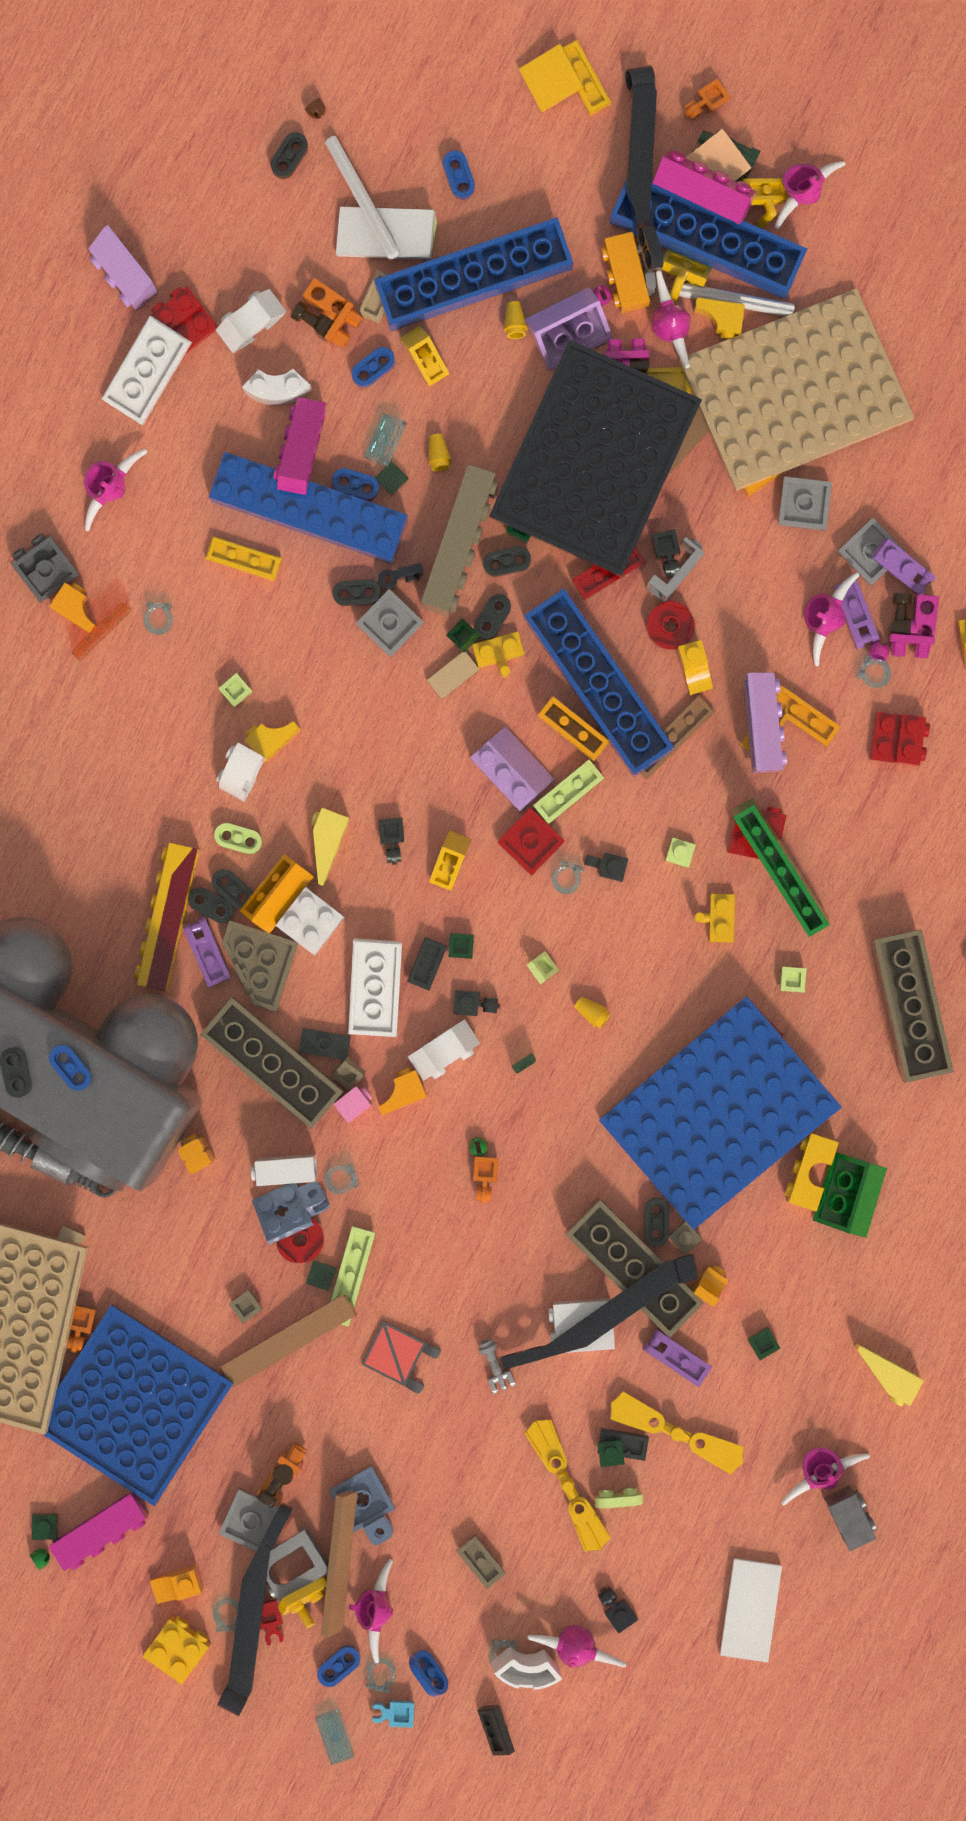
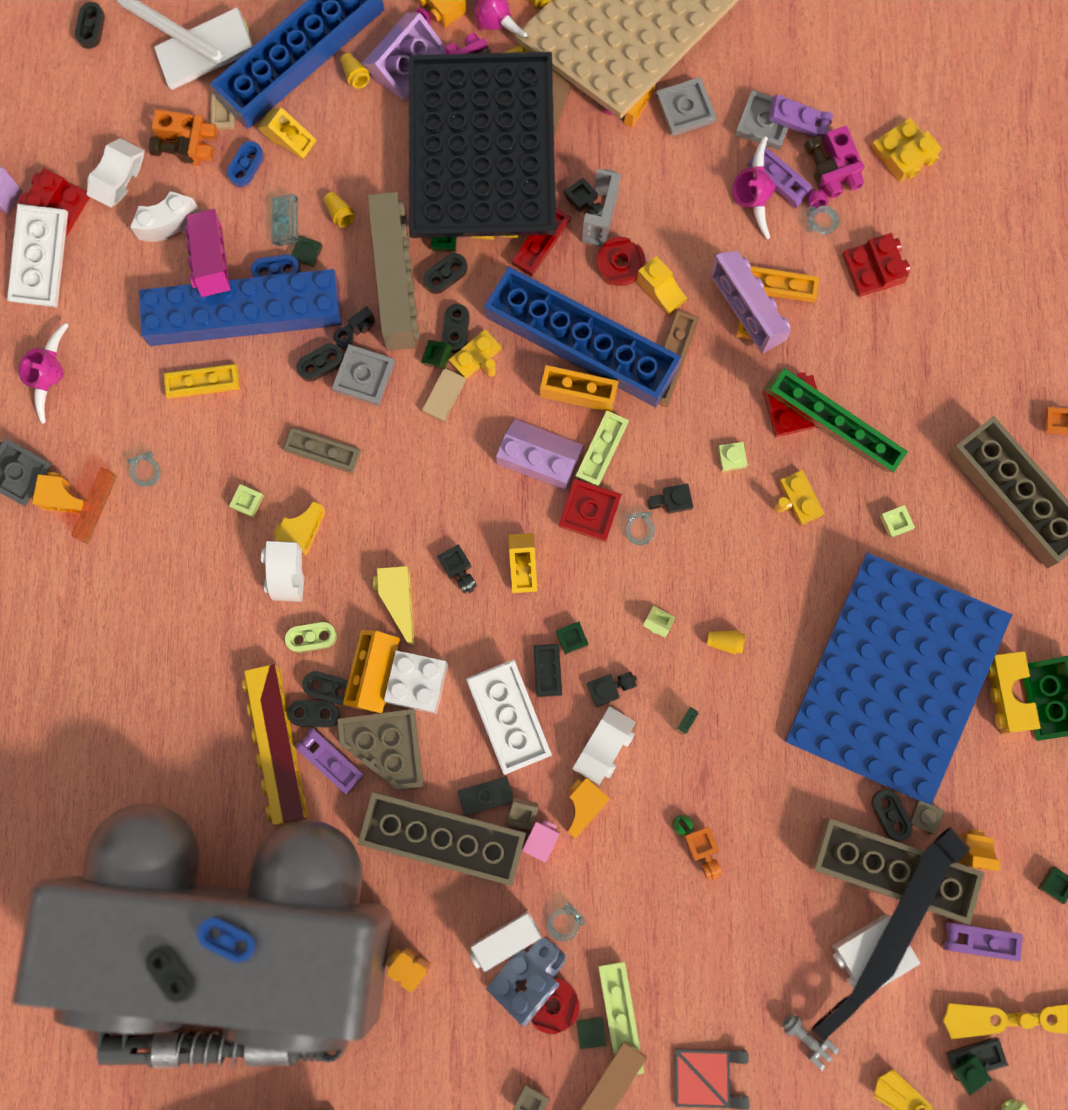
camera: 25 degrees left, 10 degrees down
(321, 674) = (321, 450): none -> dark tan tile

